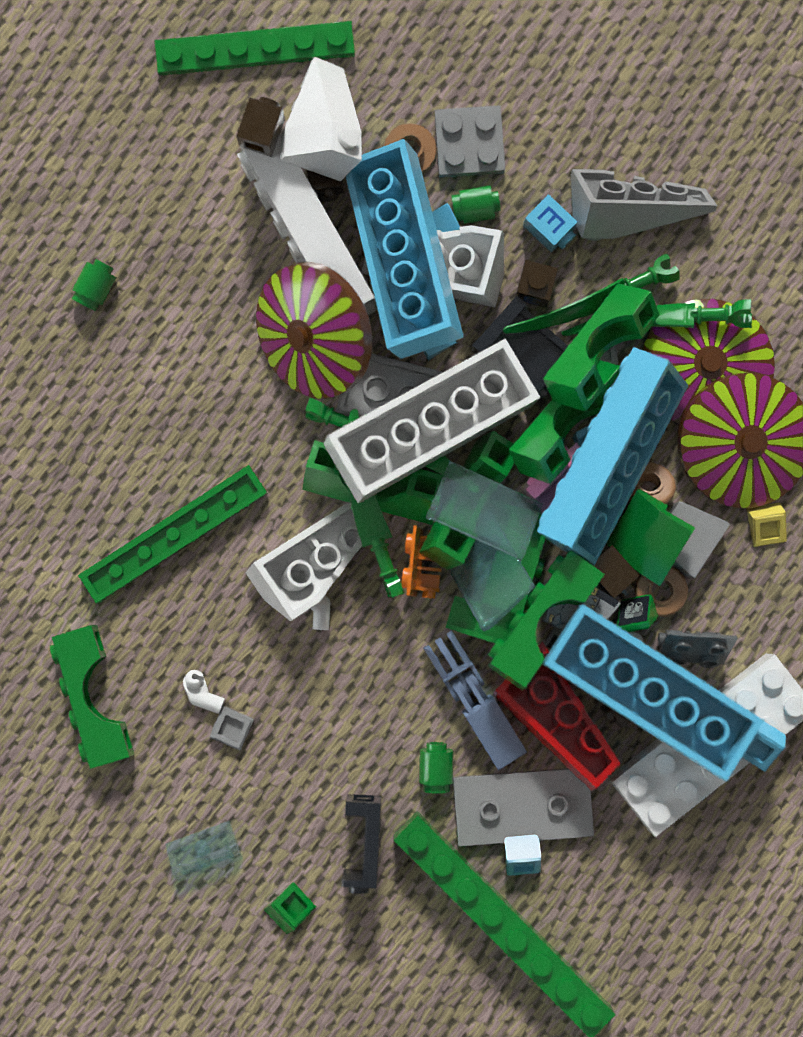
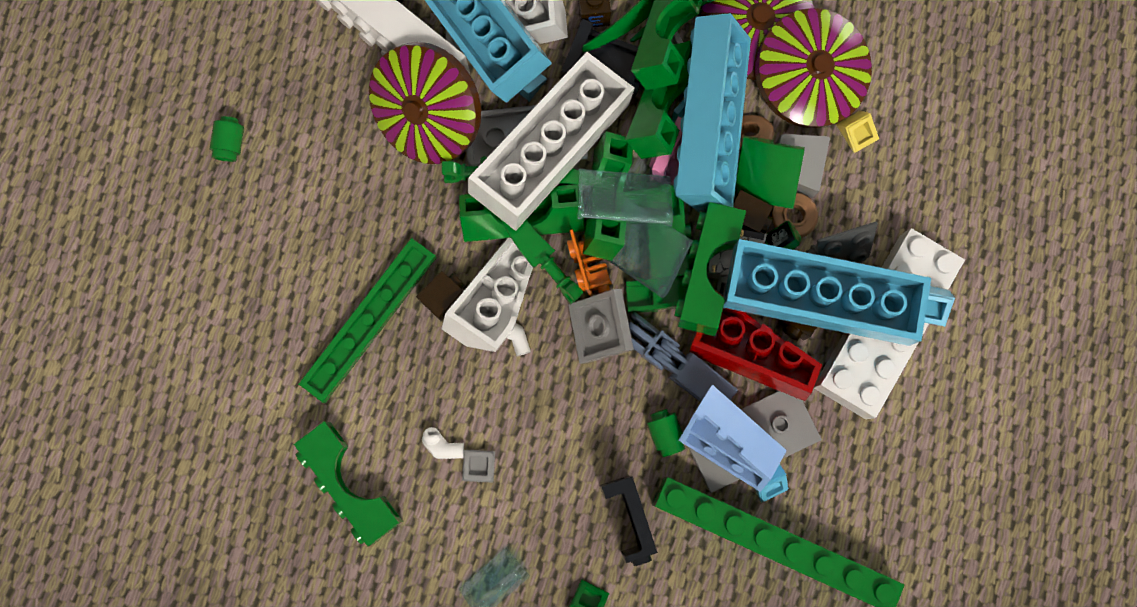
camera: 20 degrees left, 5 degrees down
(258, 537) = (441, 294): none -> dark brown brick
(409, 634) = (600, 326): none -> light grey plate
(498, 805) = (732, 440): none -> light blue wedge

